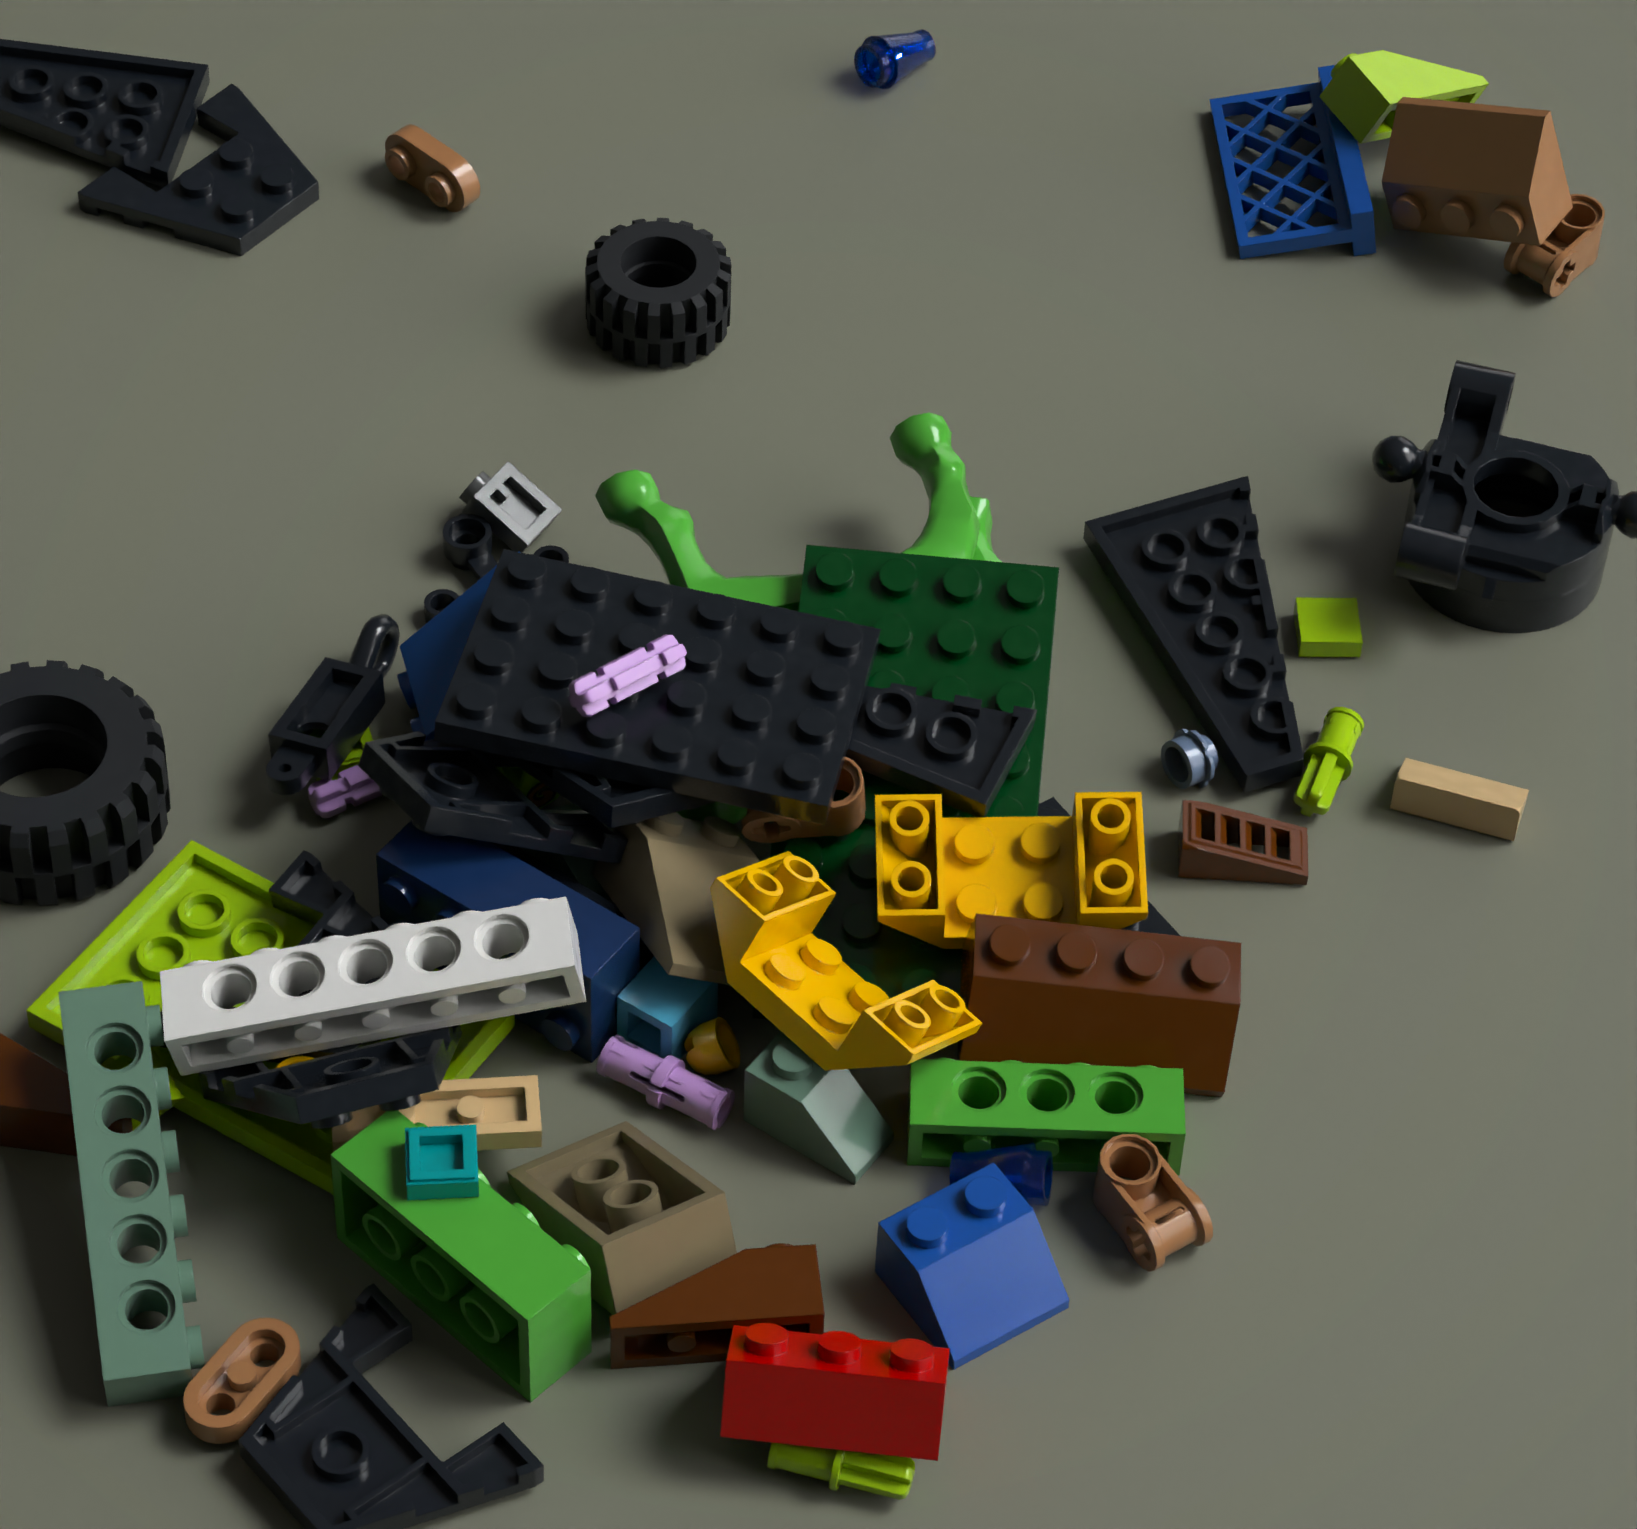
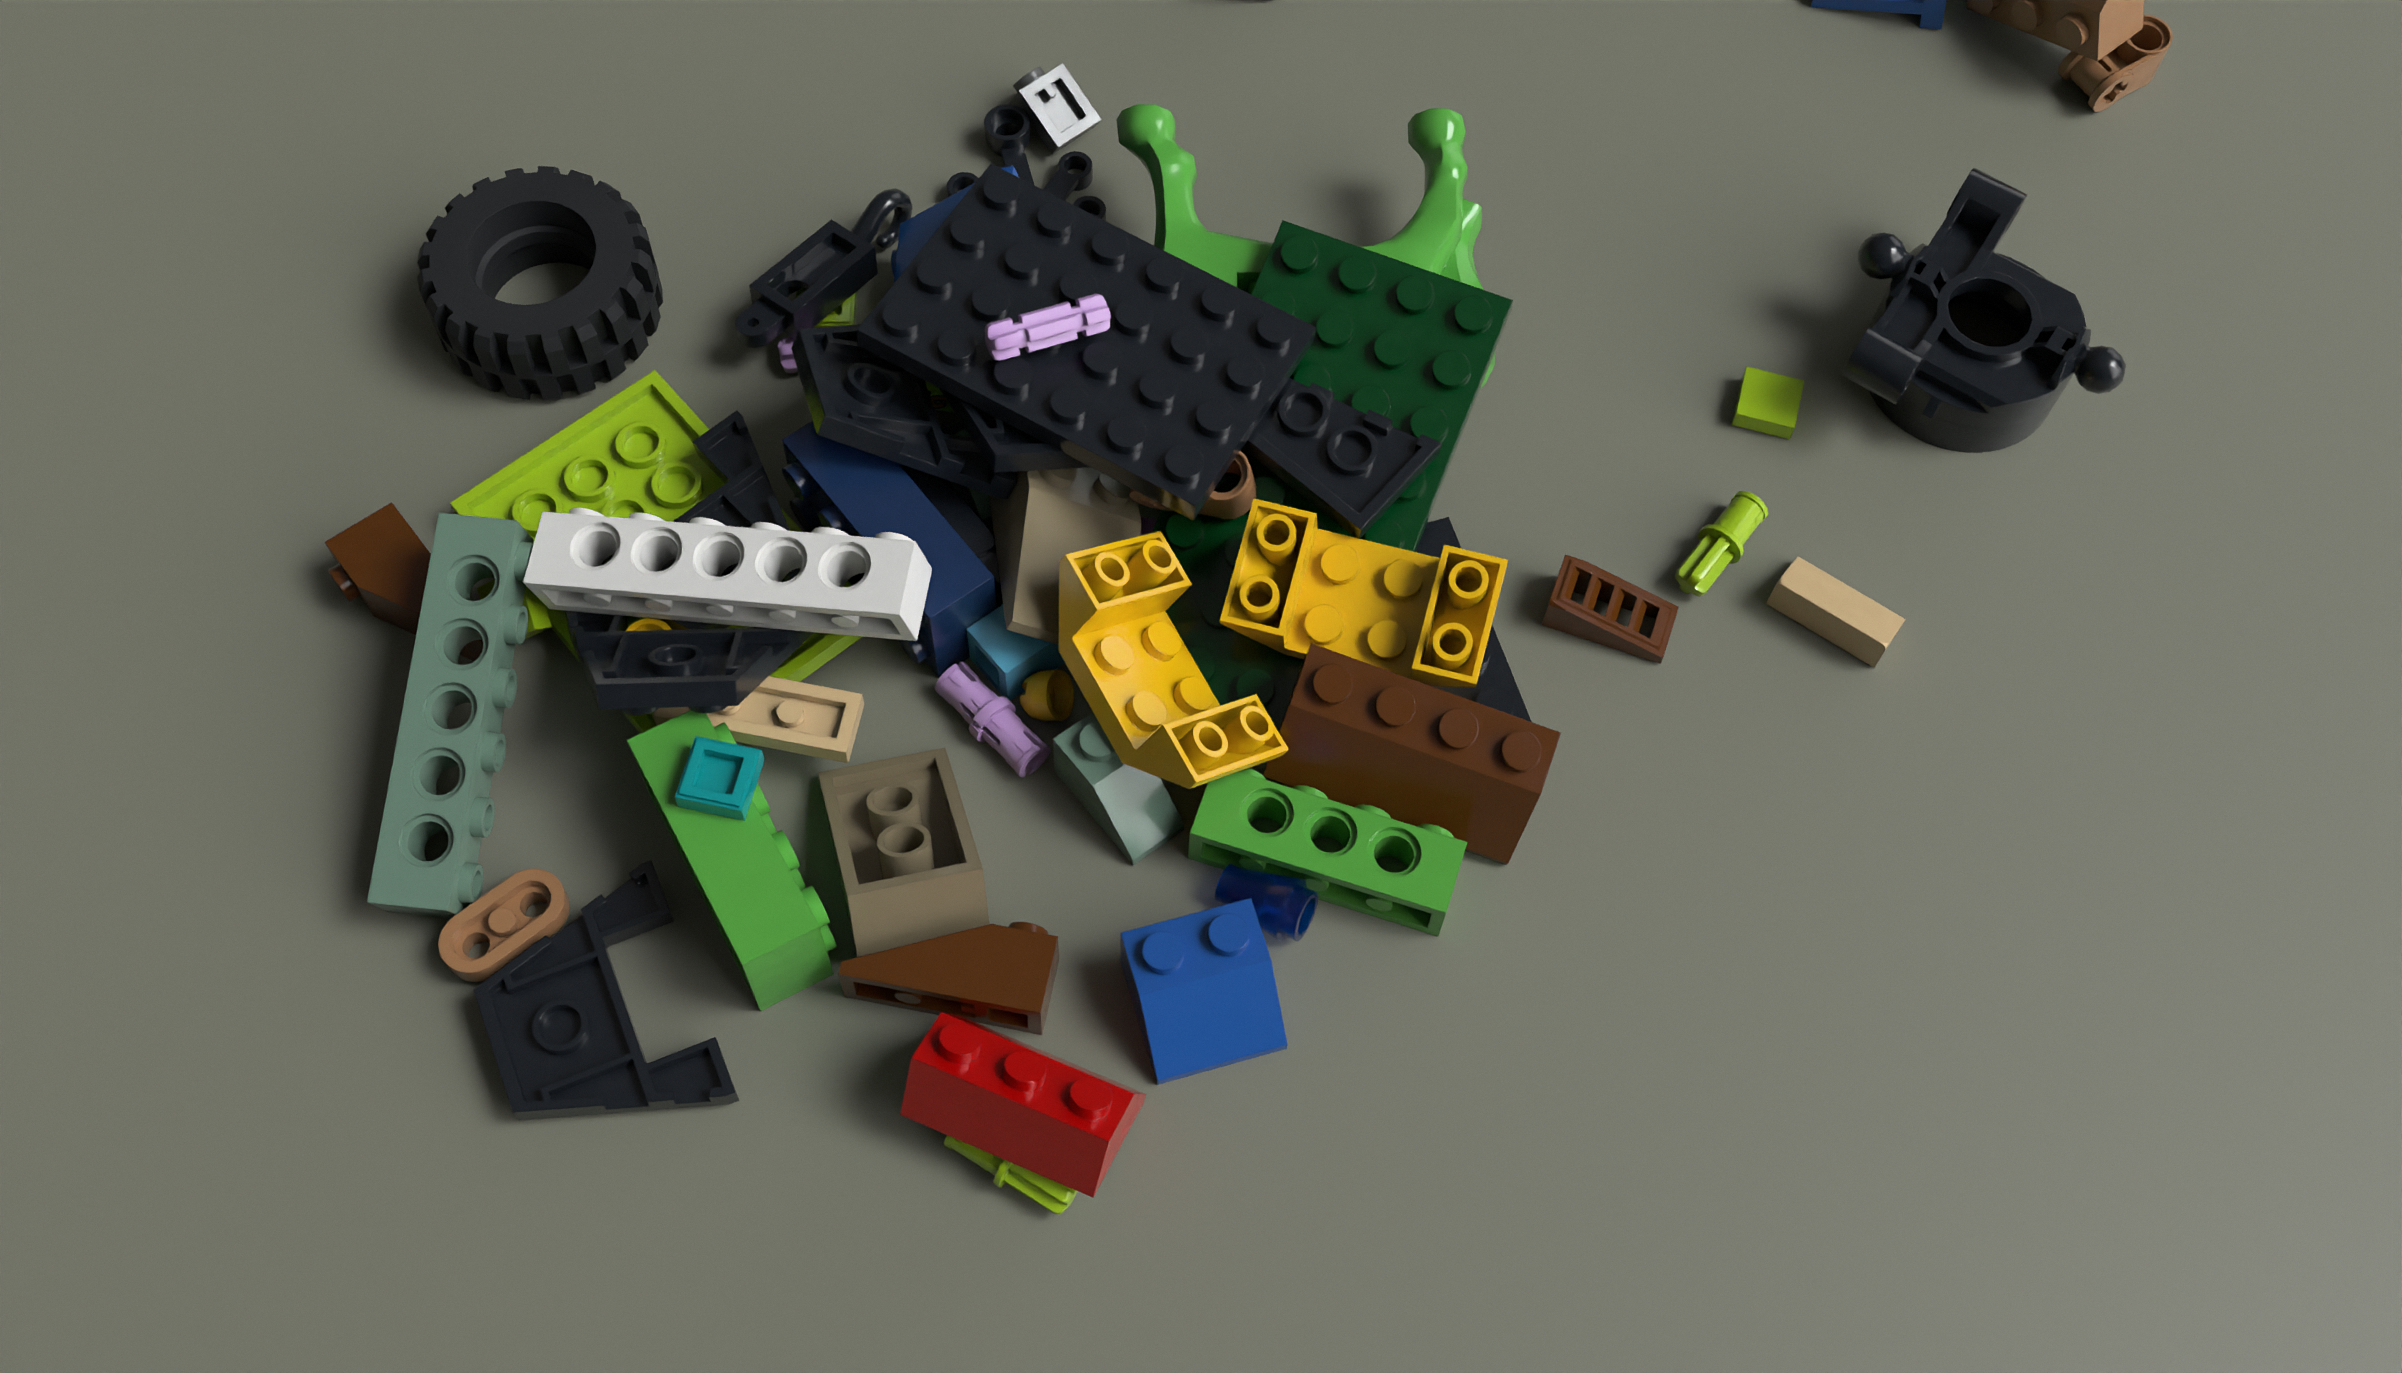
camera: 15 degrees right, 15 degrees up
(1155, 1208) = (1395, 979): medium nougat piece -> none
(1189, 759) = (1590, 509): sand blue plate -> none
(1208, 610) = (1656, 355): black wing -> none

